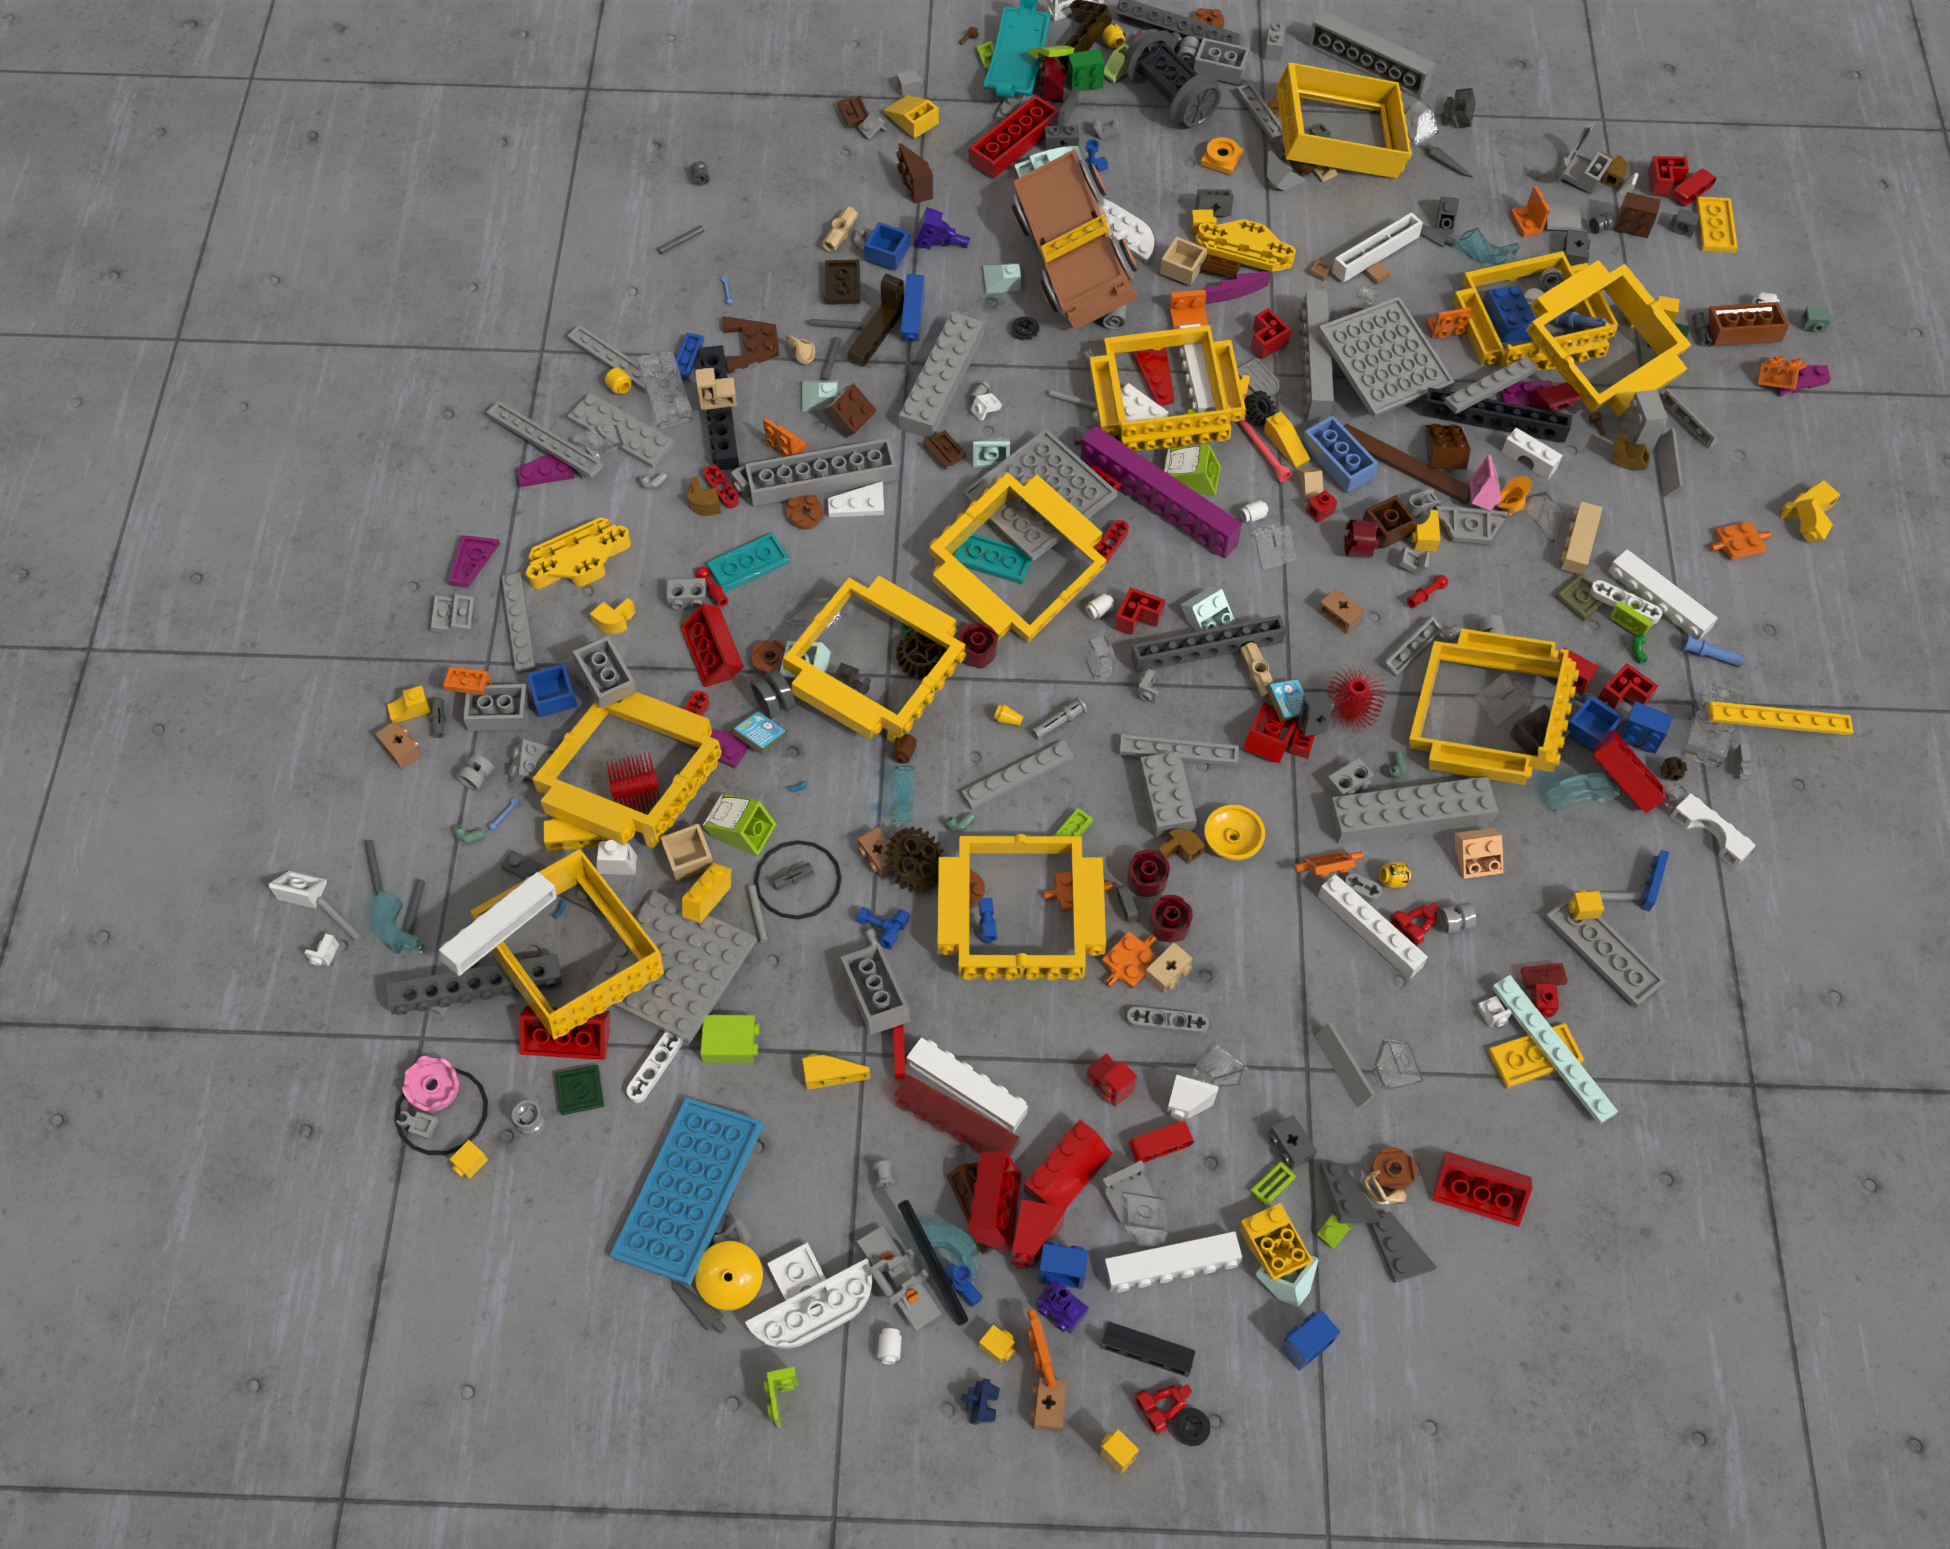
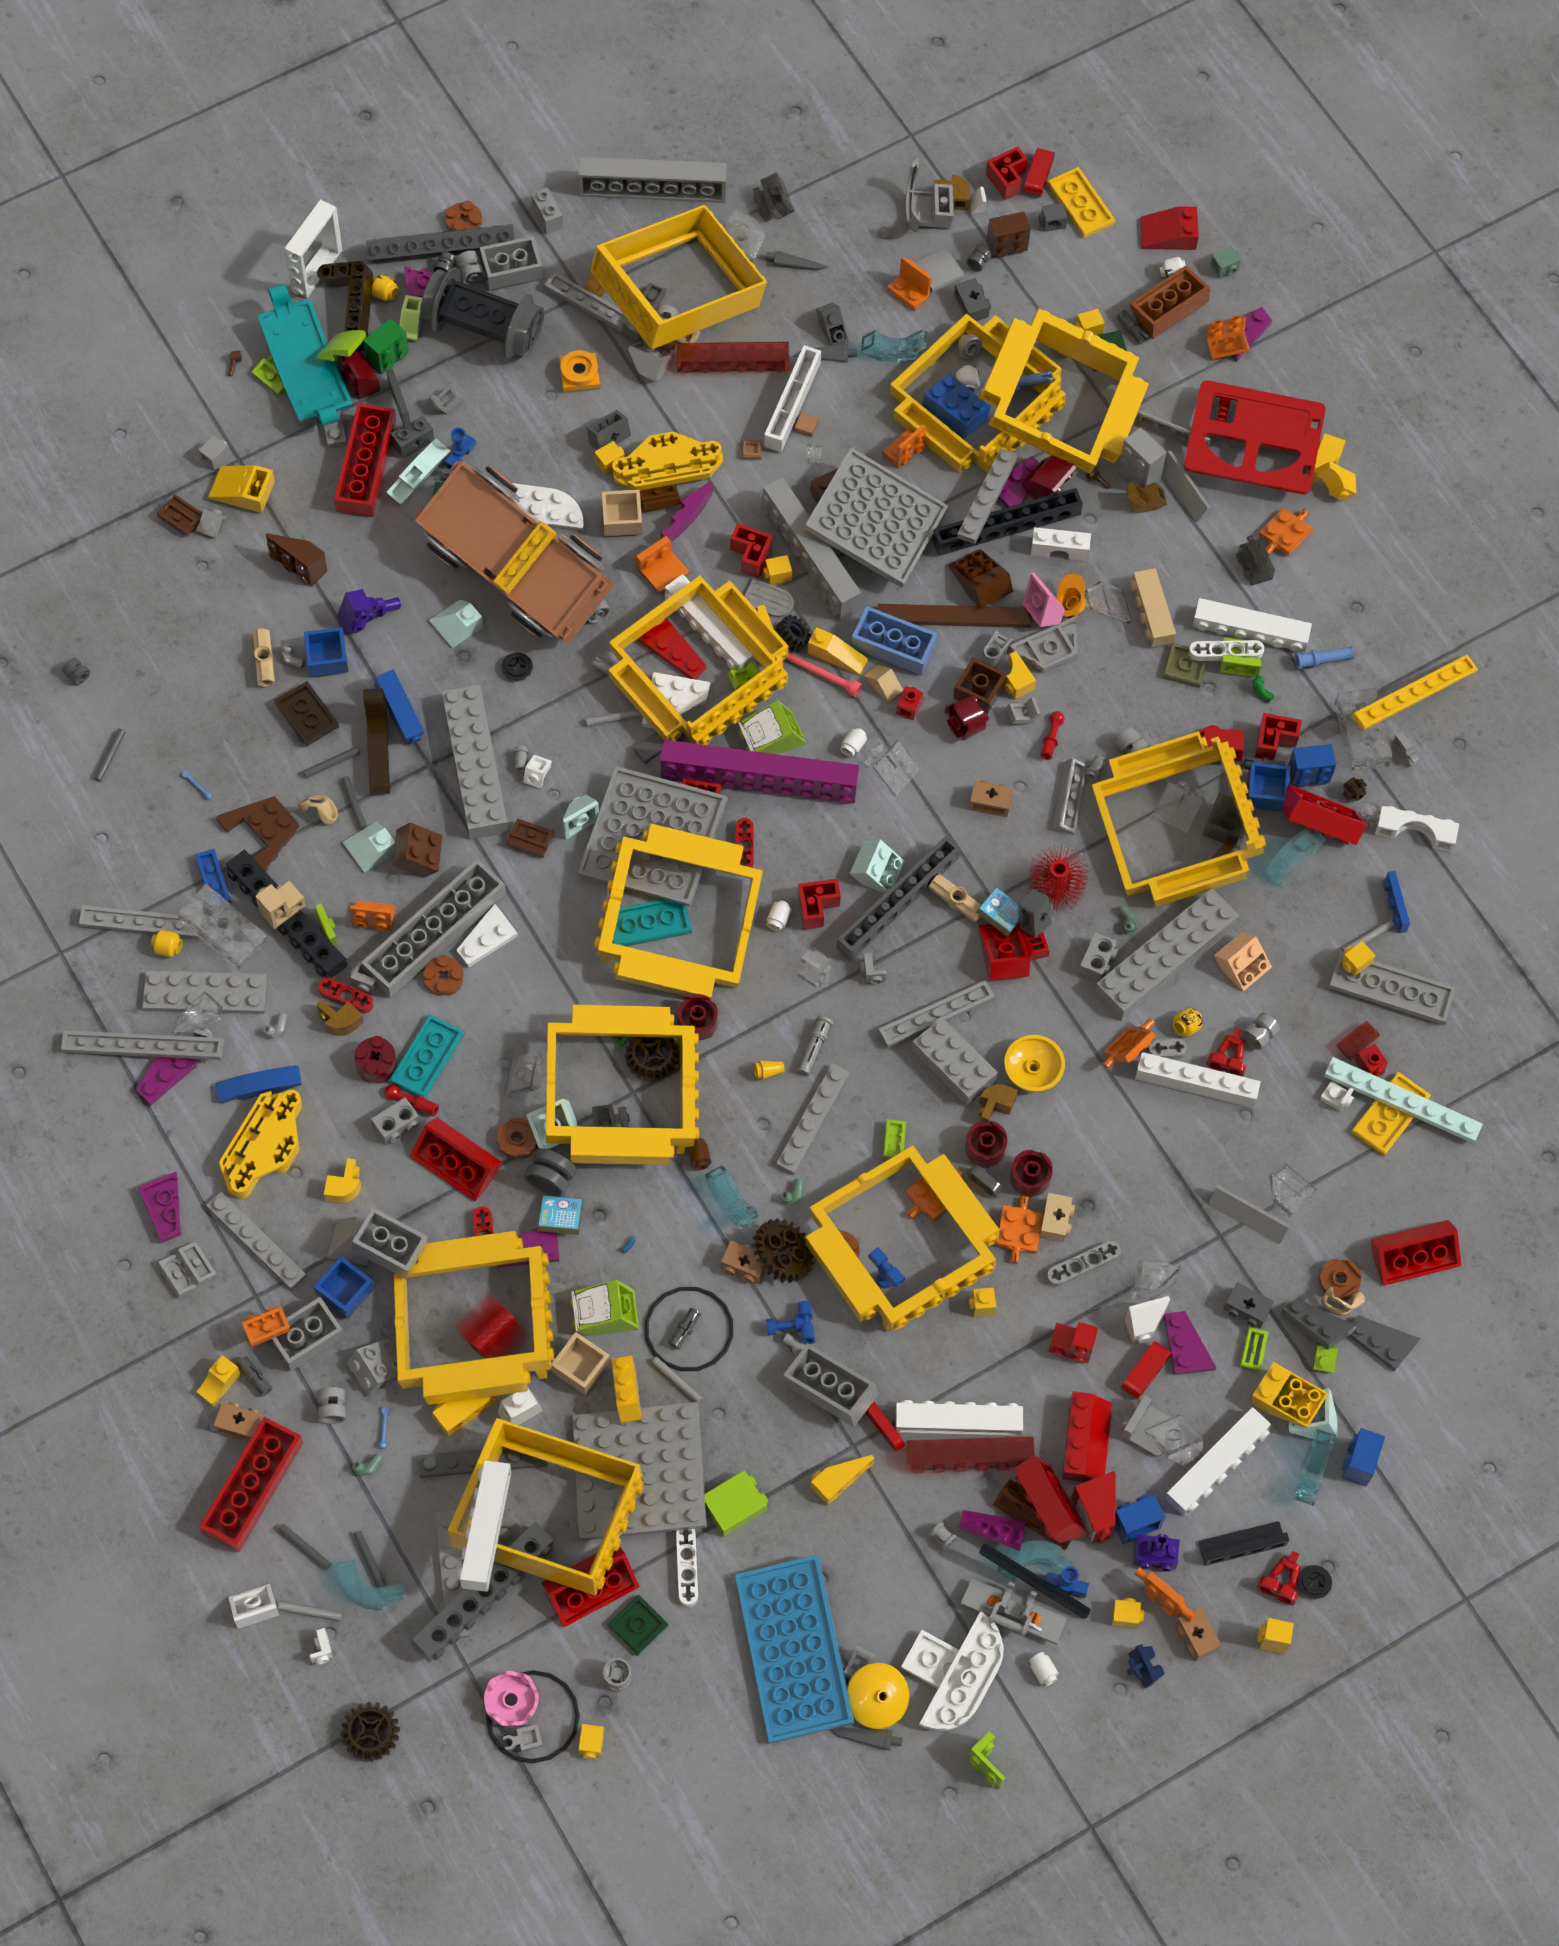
camera: 35 degrees left, 5 degrees up
(315, 1046) = (381, 1746): none -> dark brown gear
(368, 794) = (251, 1484): none -> red brick
(615, 512) = (258, 1082): none -> blue slope
(705, 541) = (366, 1055): none -> dark red brick
(744, 429) = (326, 923): none -> lime plate
(931, 1195) = (995, 1528): none -> magenta wing
(1055, 1000) = (983, 1302): none -> yellow brick
(1212, 1144) = (1186, 1346): none -> magenta wing
(1258, 1321) = (1314, 1466): none -> clear light blue arch
(1280, 360) = (777, 570): none -> yellow brick
(1349, 199) = (733, 357): none -> clear red brick
(1697, 547) = (1255, 561): none -> clear smoke brick
(1768, 443) = (1258, 421): none -> red door
(1782, 275) = (1170, 229): none -> red slope

